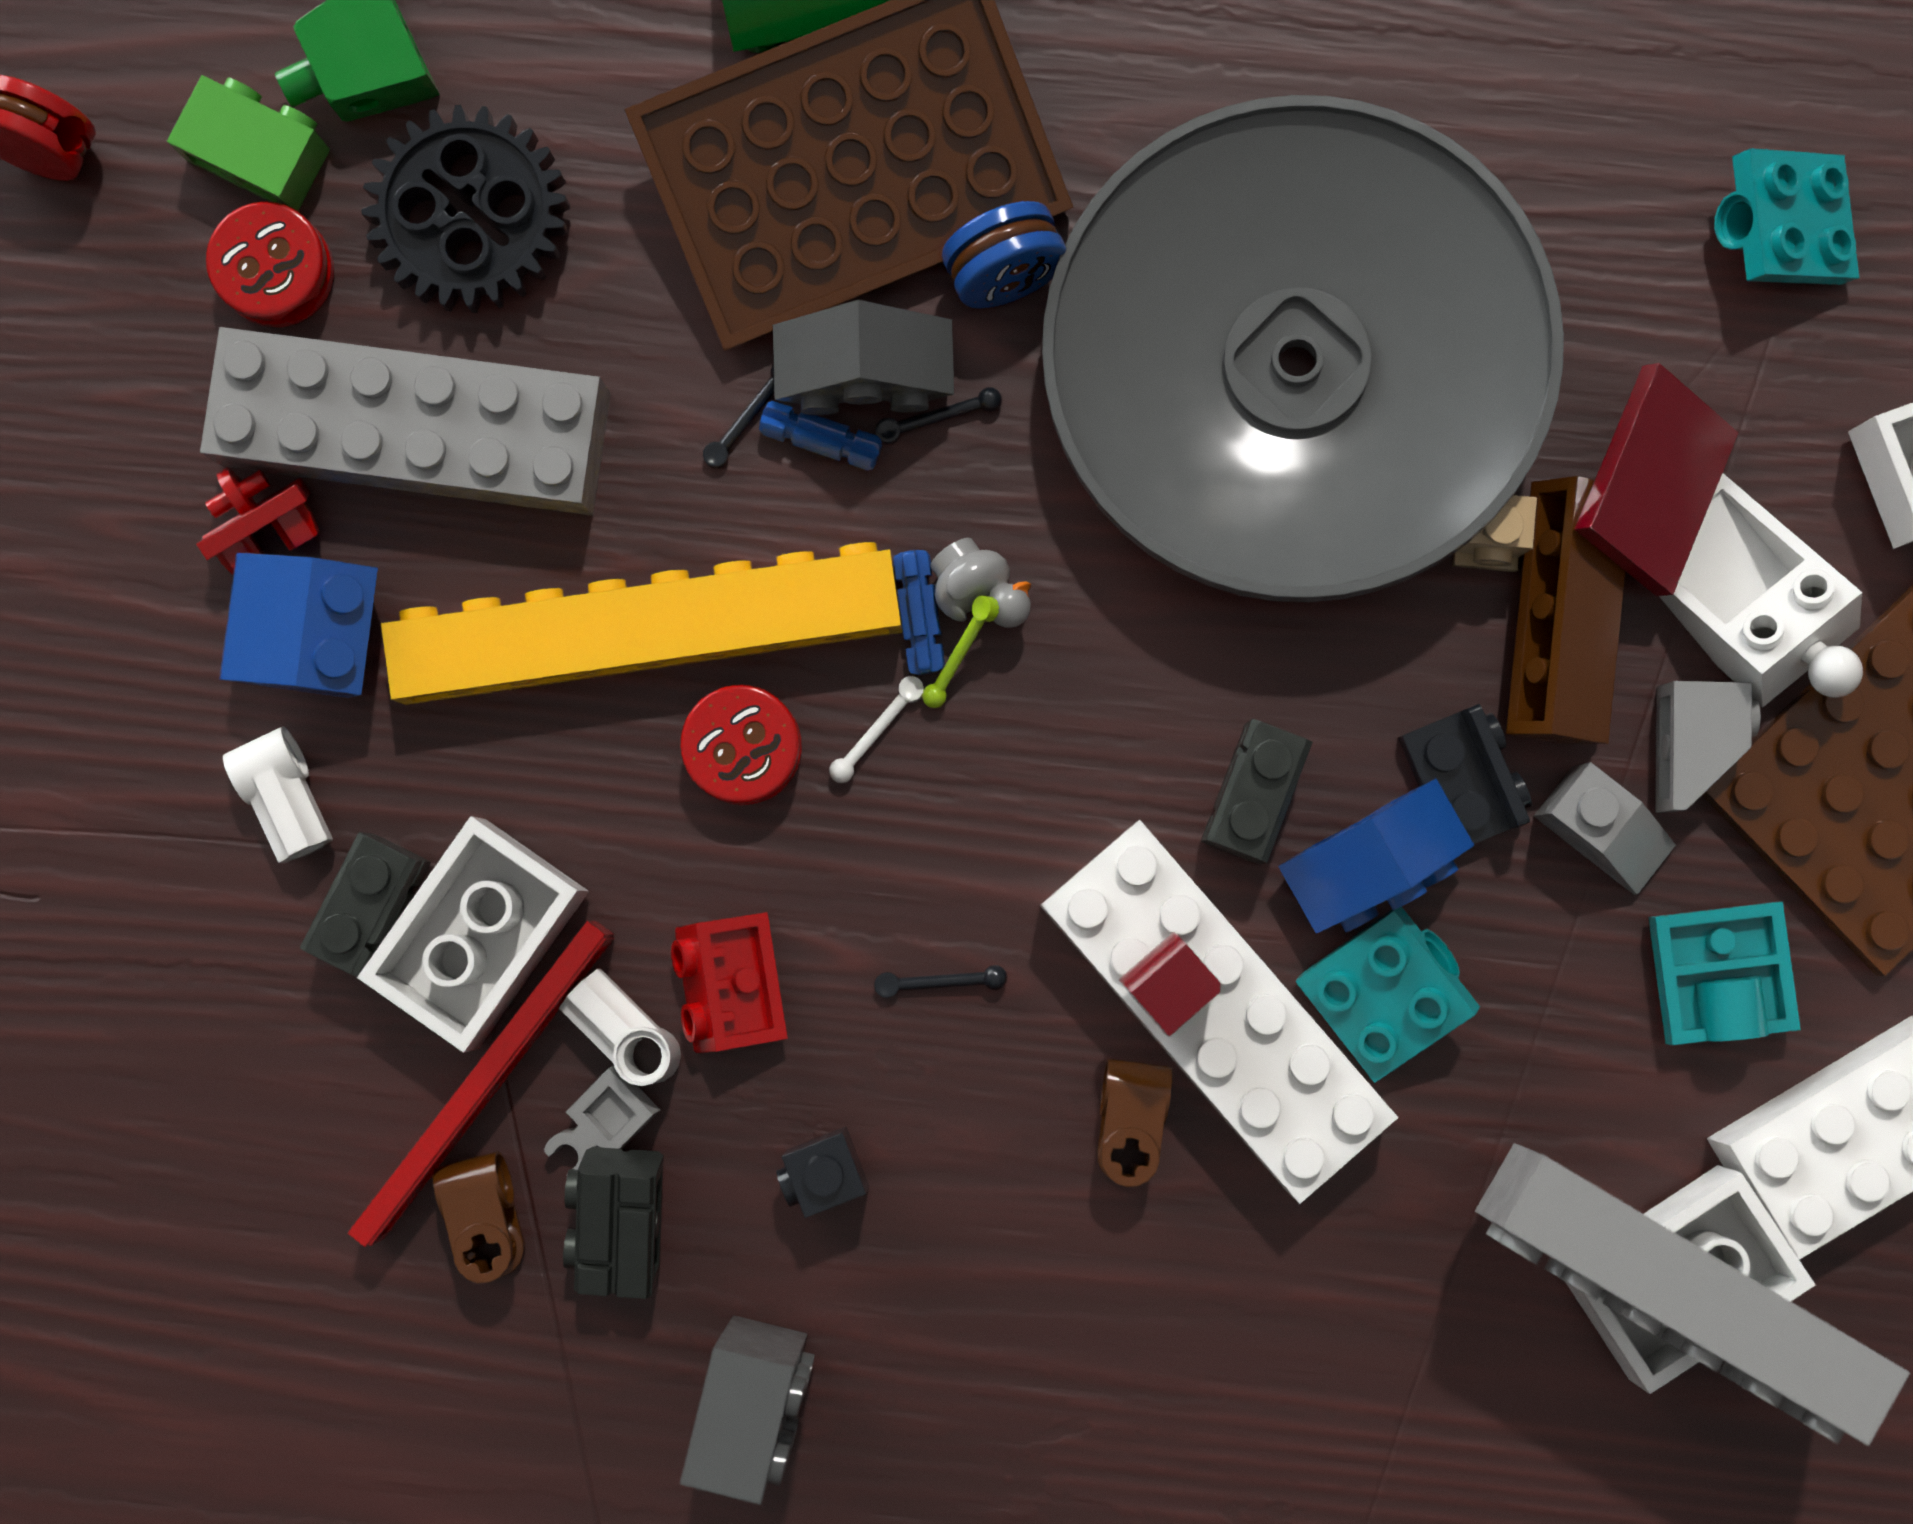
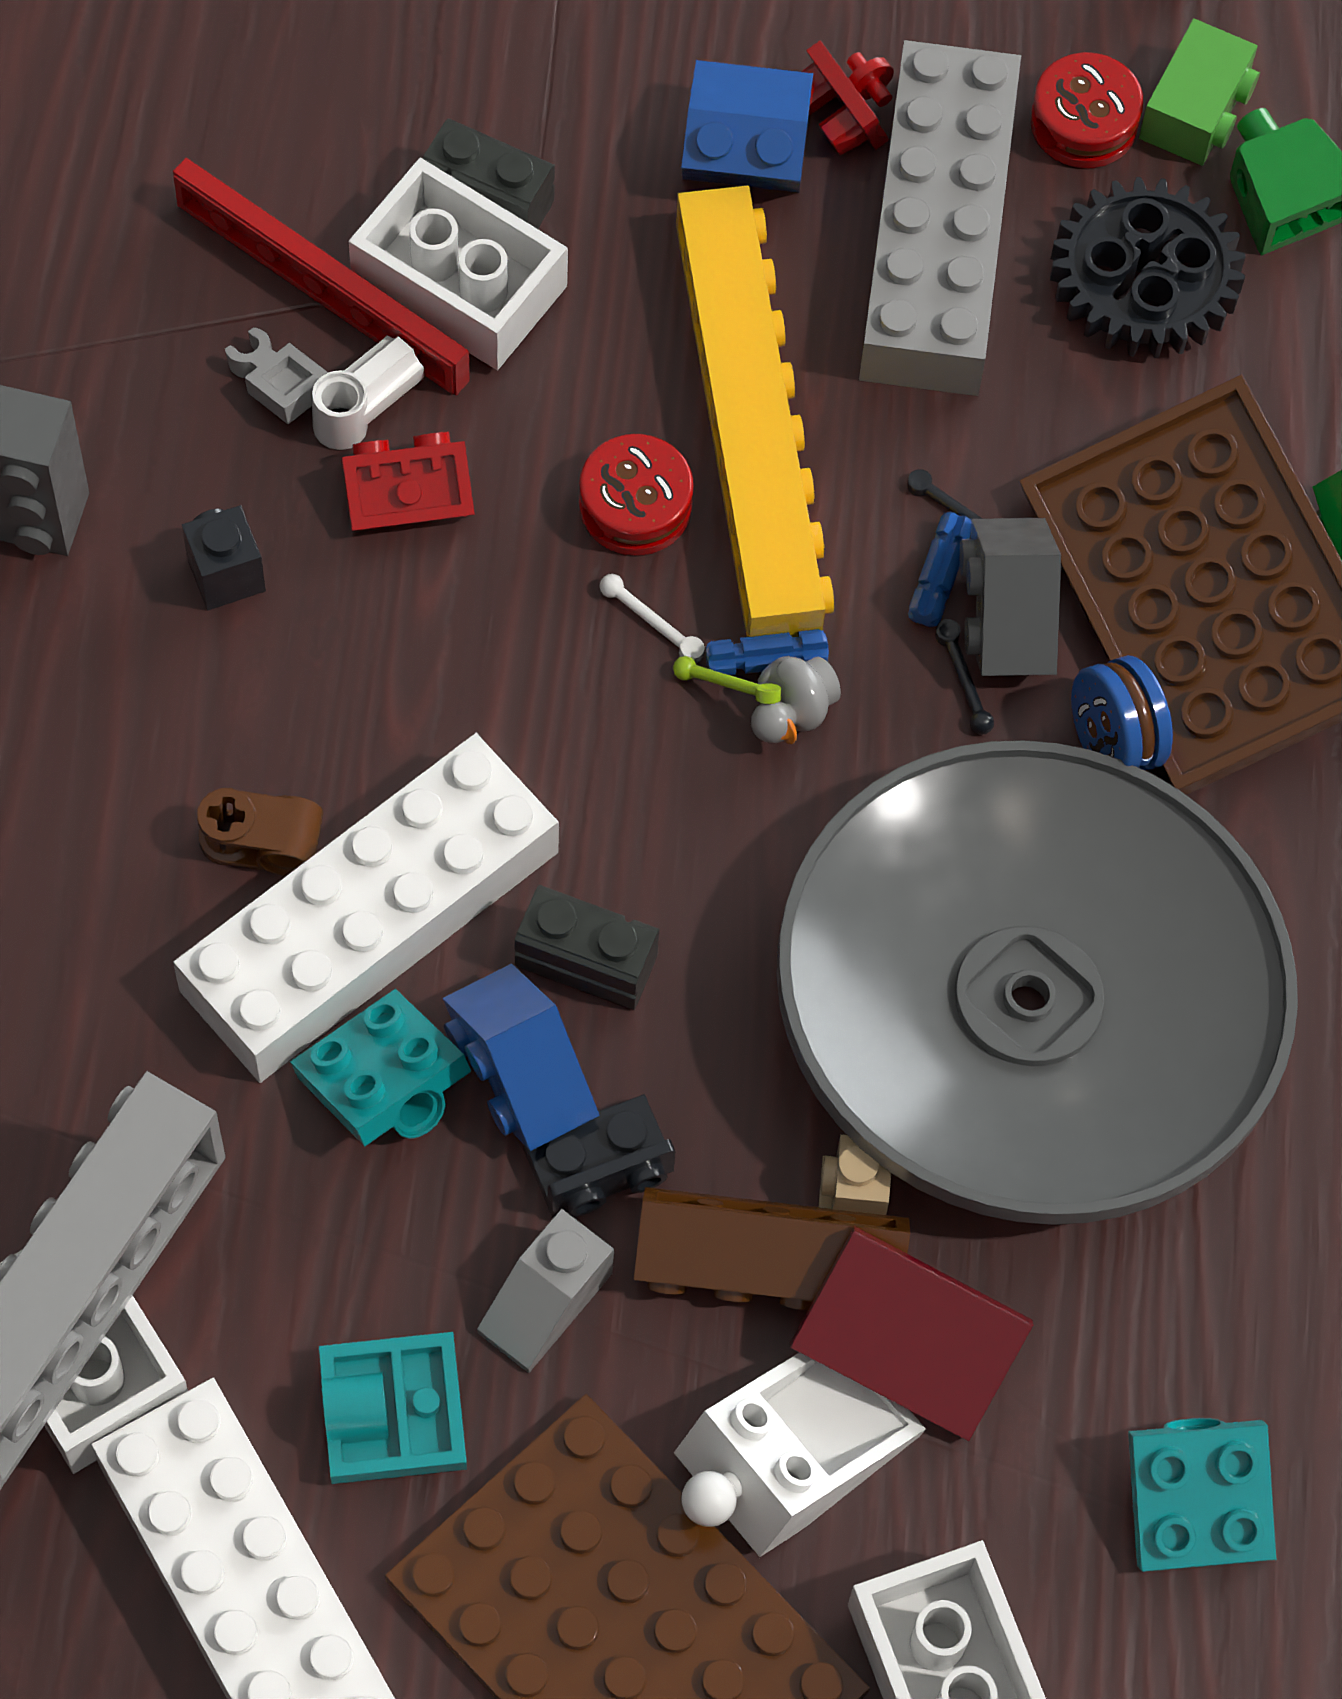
camera: 80 degrees right, 20 degrees down
(272, 779) = (605, 109): white piece -> none
(478, 1210) = (197, 270): reddish brown piece -> none
(616, 1222) = (184, 378): pearl dark grey brick -> none
(889, 984) = (402, 627): black hinge -> none
(1171, 984) = (393, 826): dark red piece -> none
(1699, 737) = (639, 1384): light grey slope -> none

